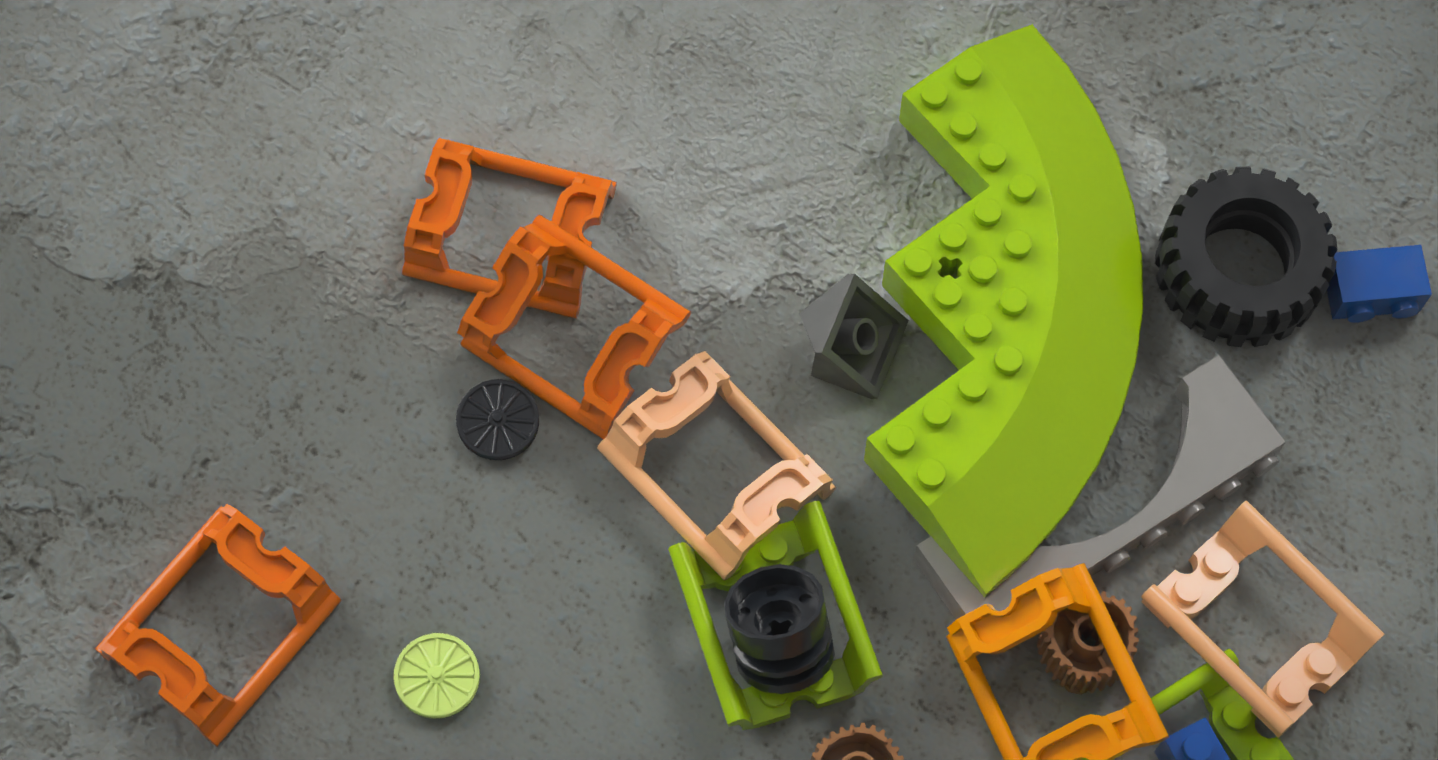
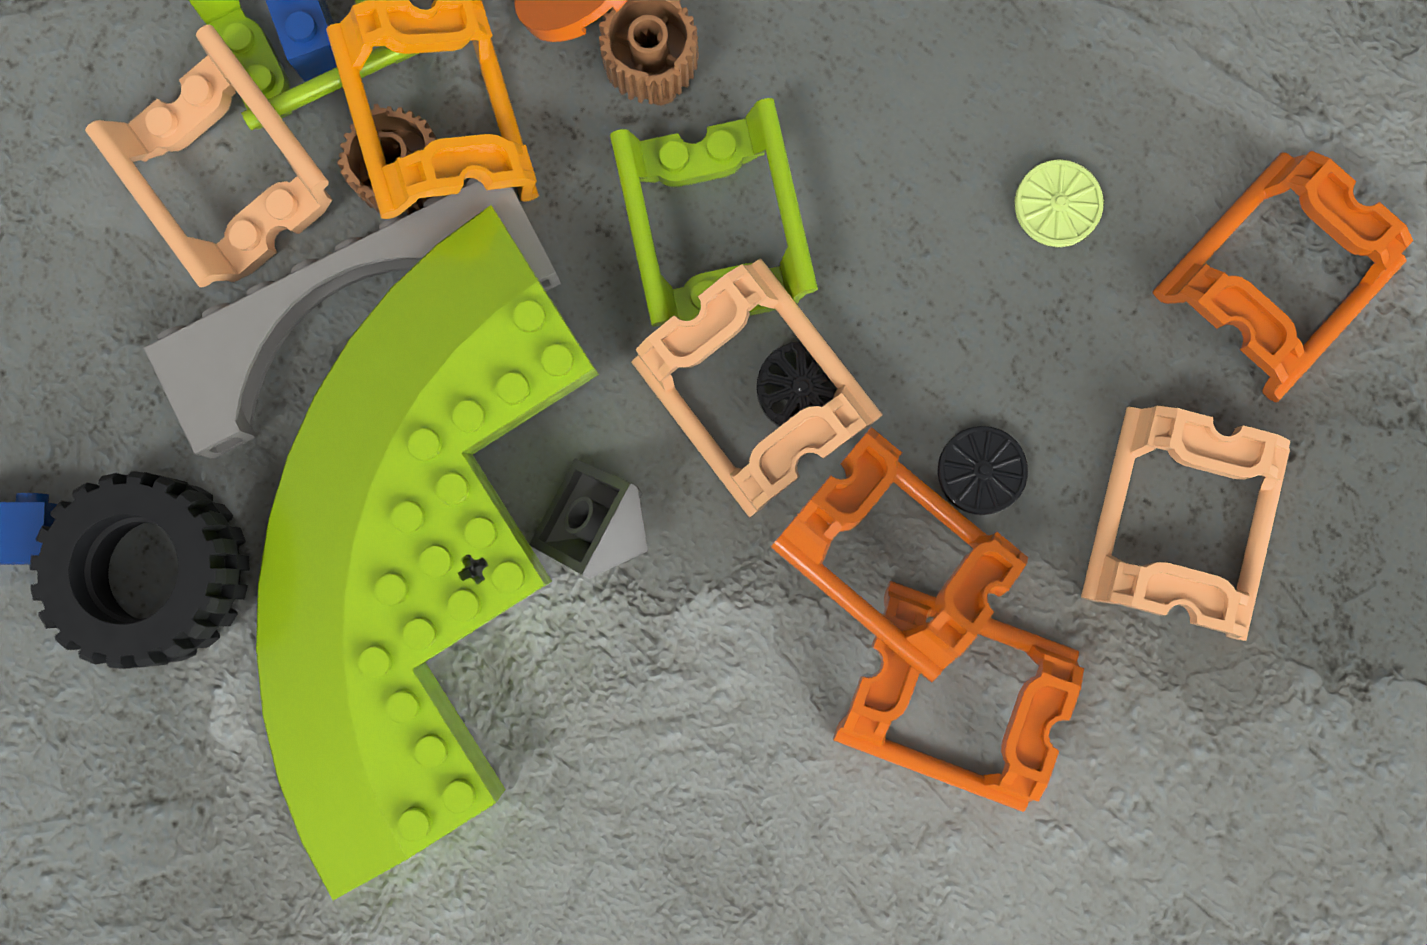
camera: 170 degrees left, 15 degrees up
(305, 439) = (1161, 585): none -> light nougat piece
(676, 477) = (799, 387): none -> black wheel
(779, 628) = (731, 210): black wheel -> none

